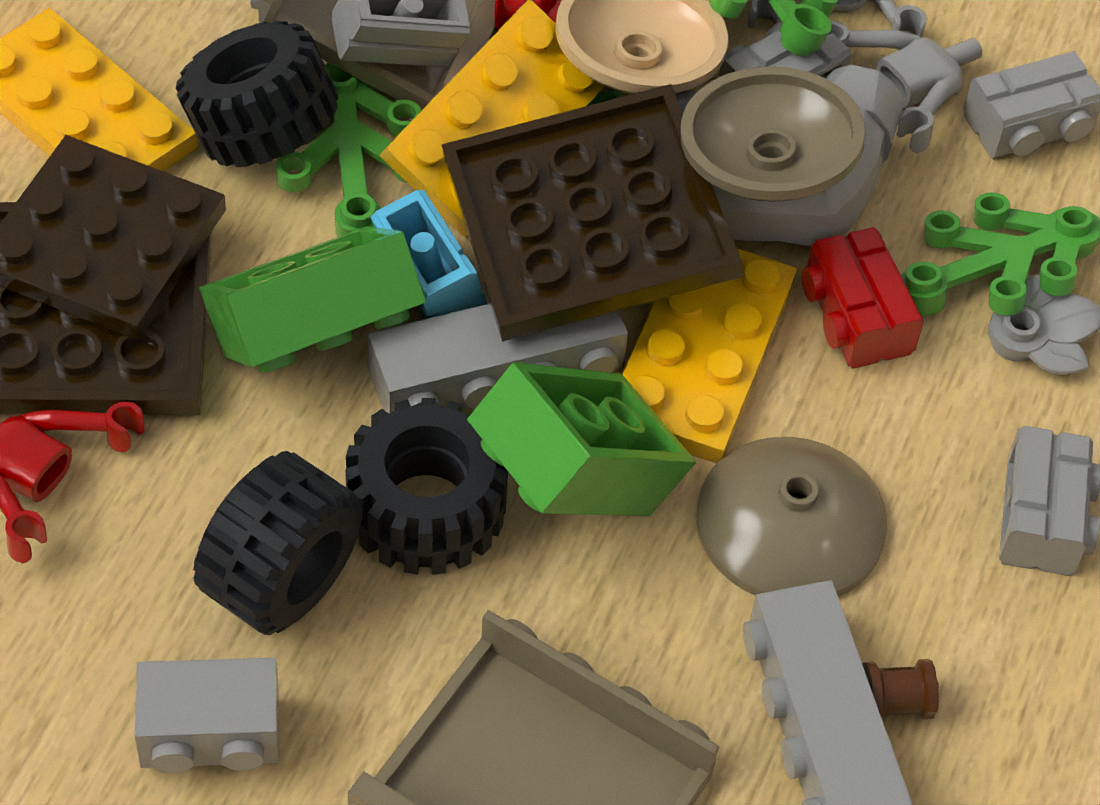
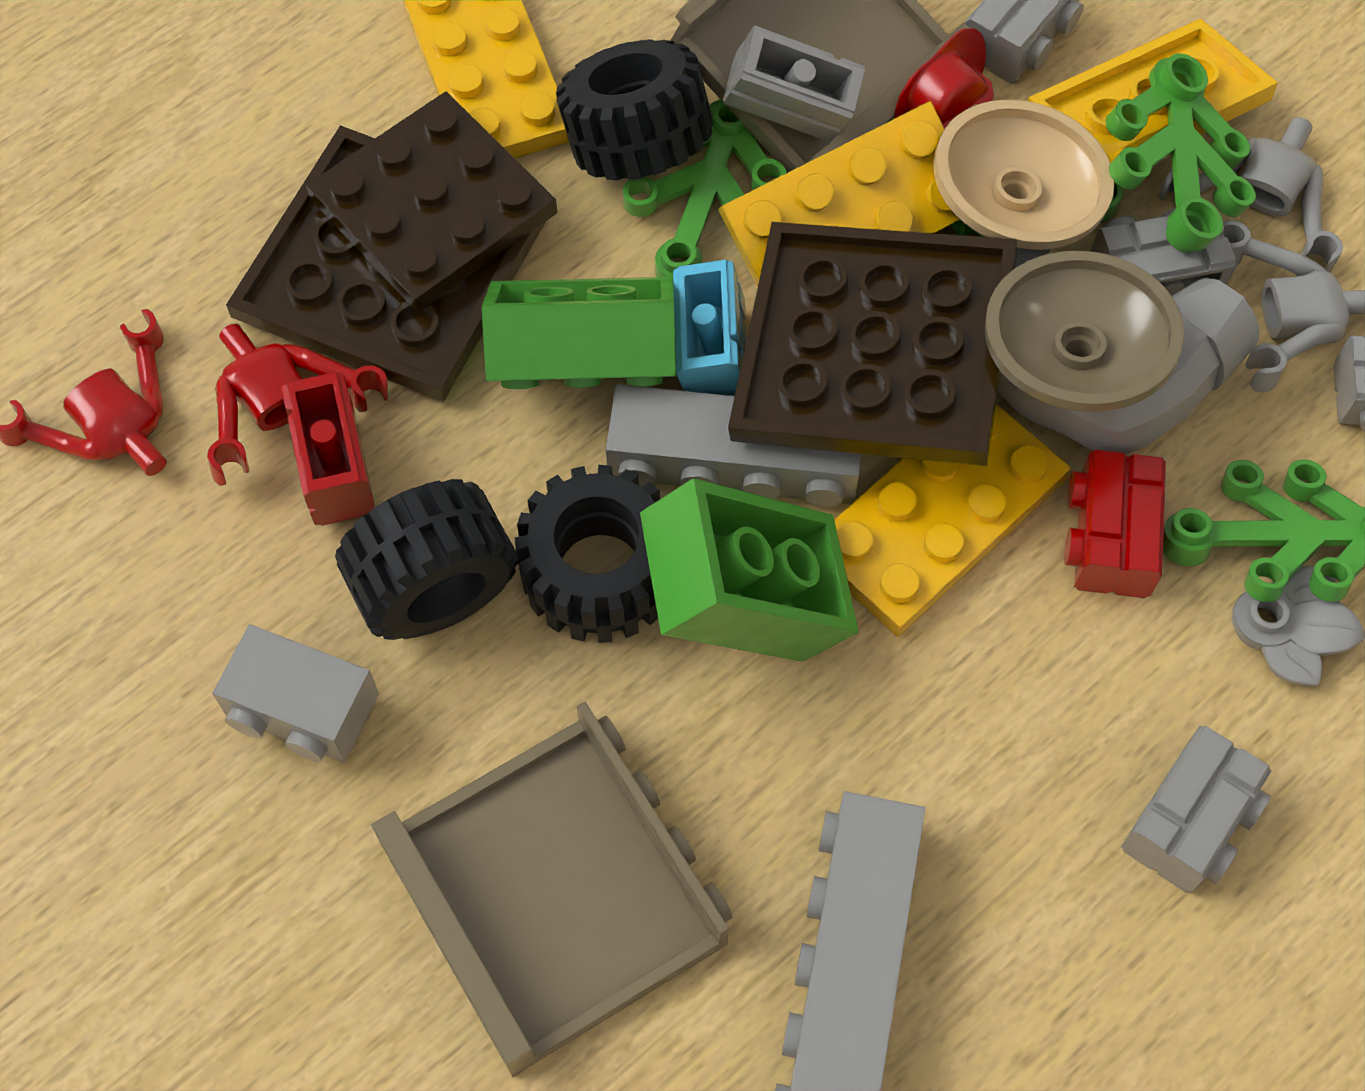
camera: 30 degrees right, 10 degrees up
(122, 487) = (328, 448): none -> red brick
(780, 542) = (927, 756): dark tan dish -> none
(905, 688) = (943, 941): reddish brown bush -> none

